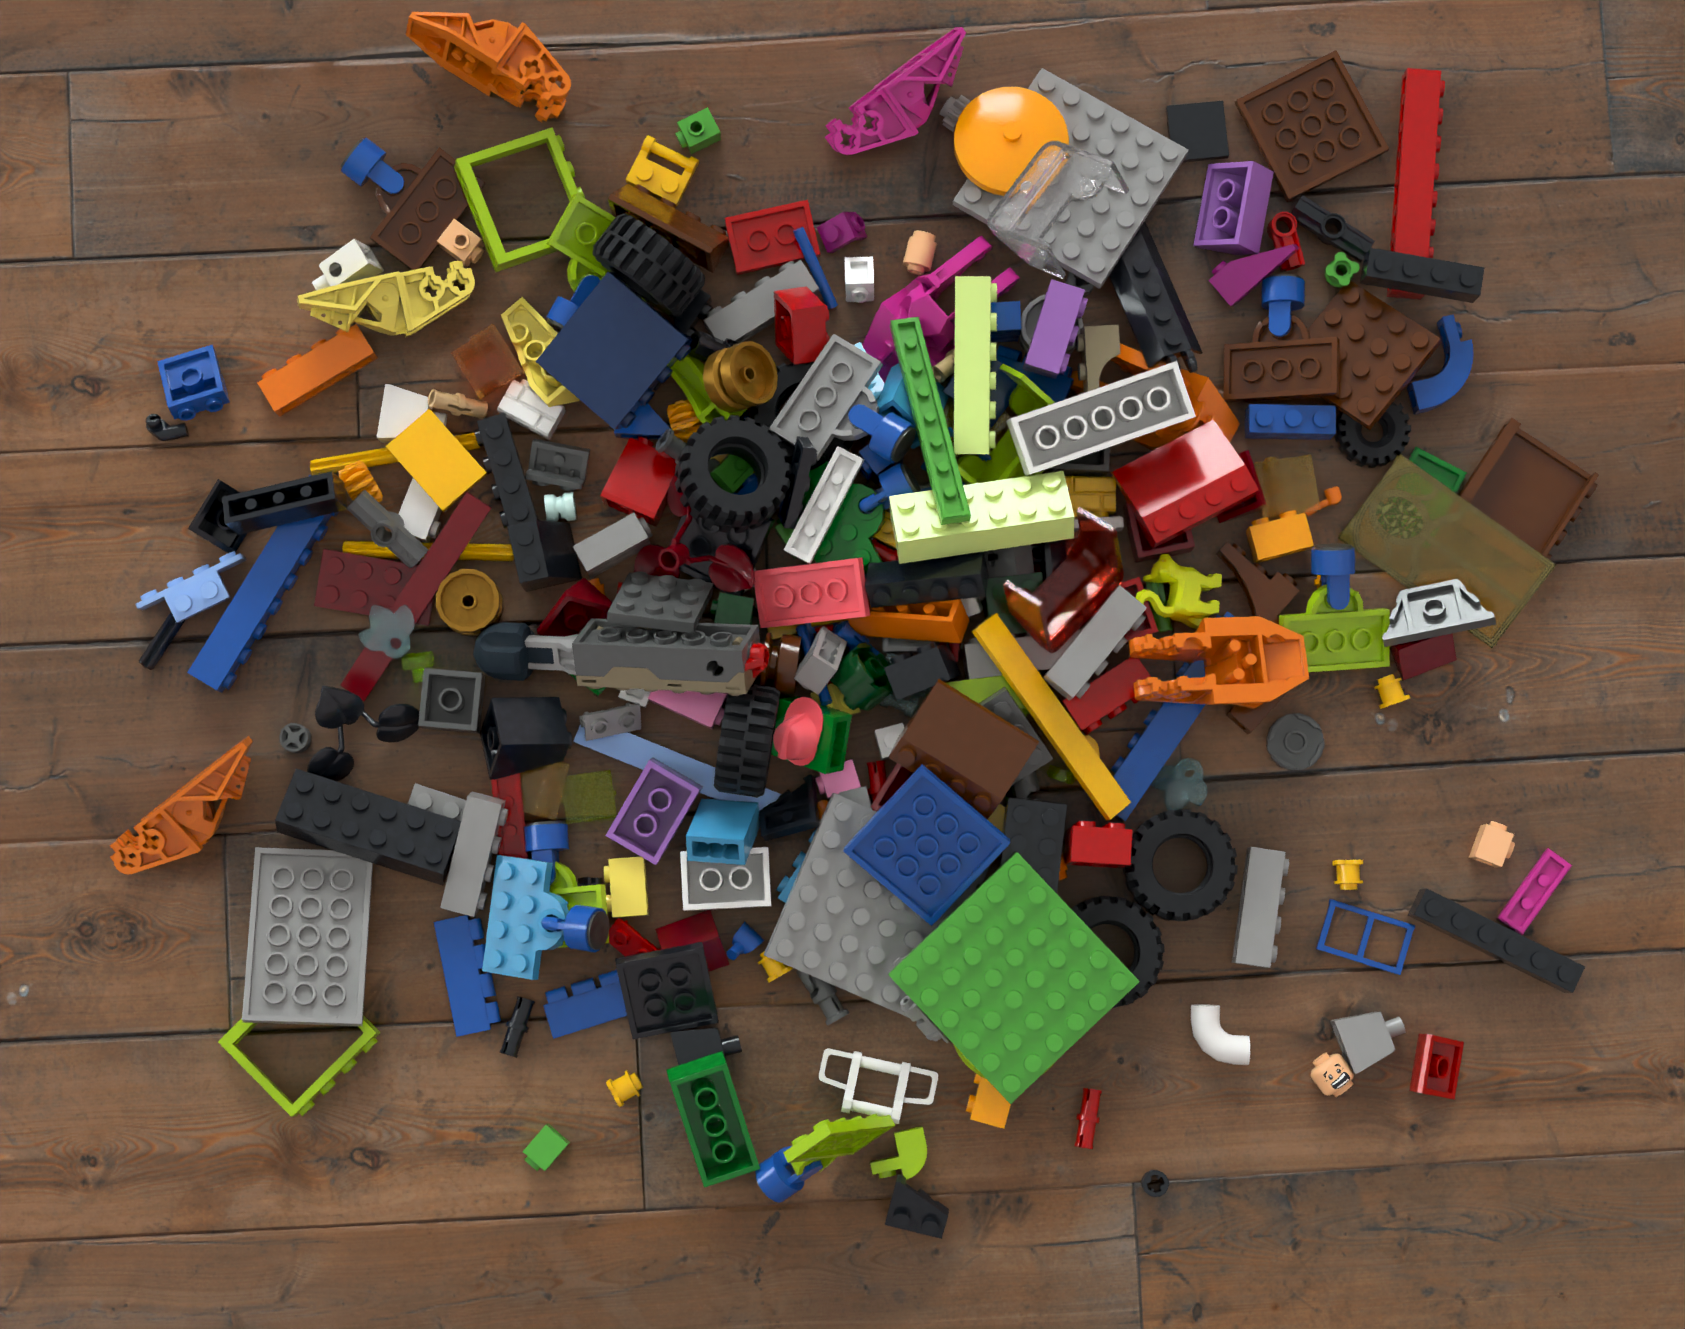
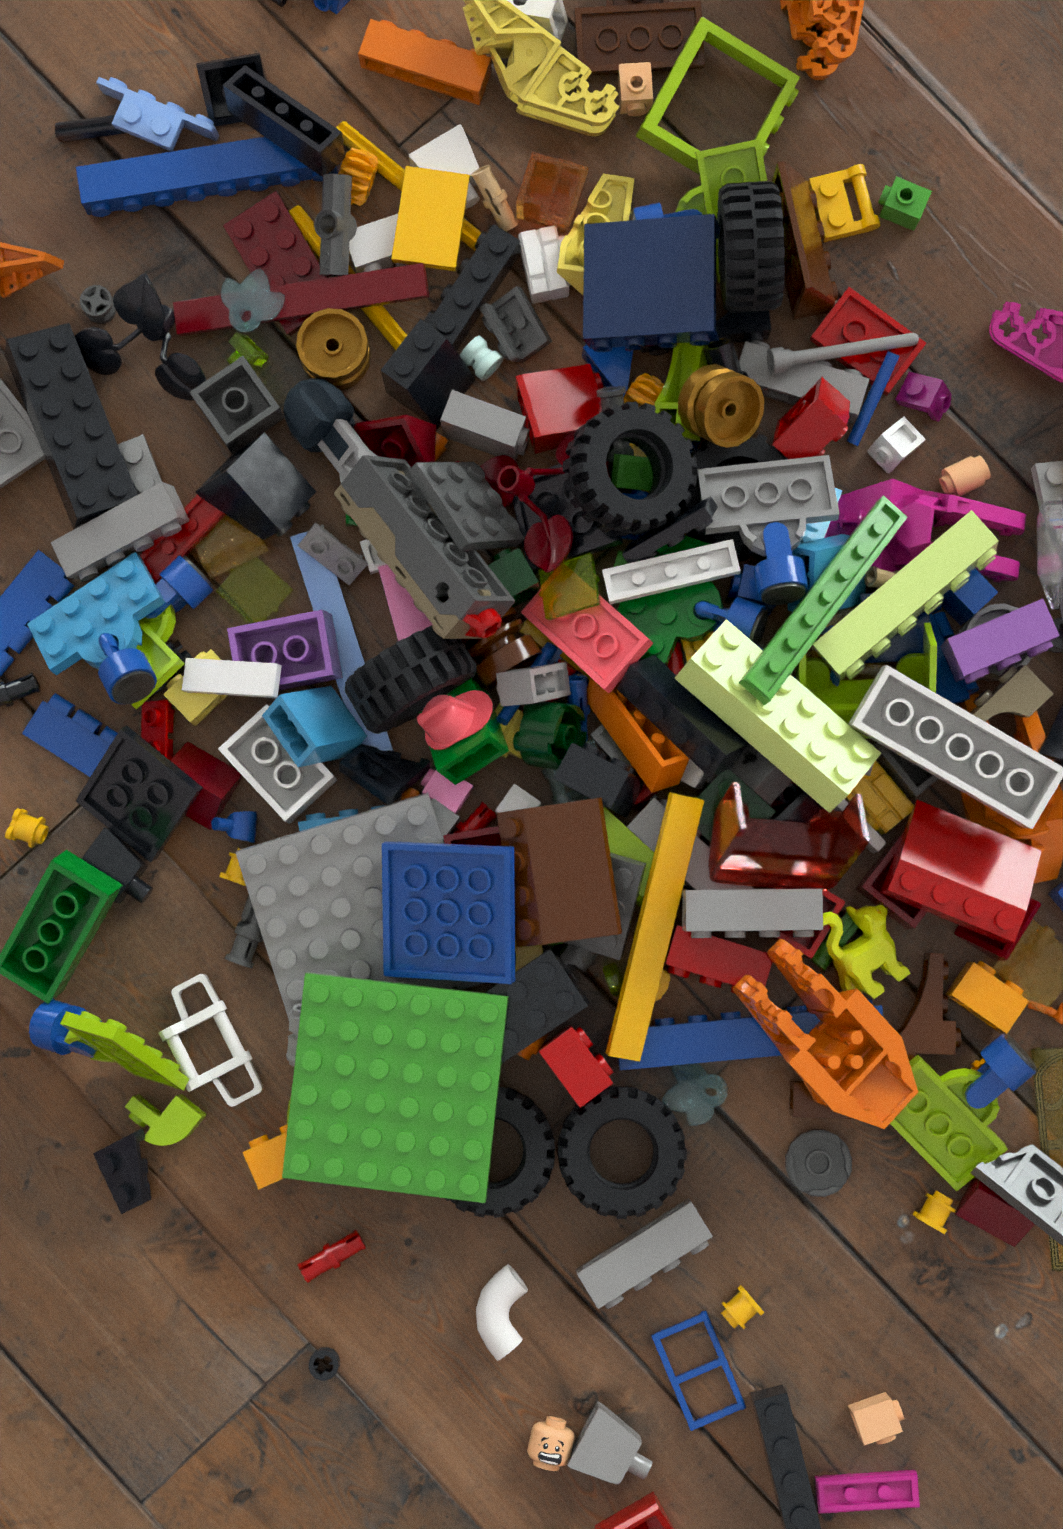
camera: 55 degrees right, 0 degrees up
(643, 860) = (231, 678): none -> white tile
(739, 307) = (781, 360): none -> light grey piece
(774, 580) = (570, 587): none -> clear neon green piece

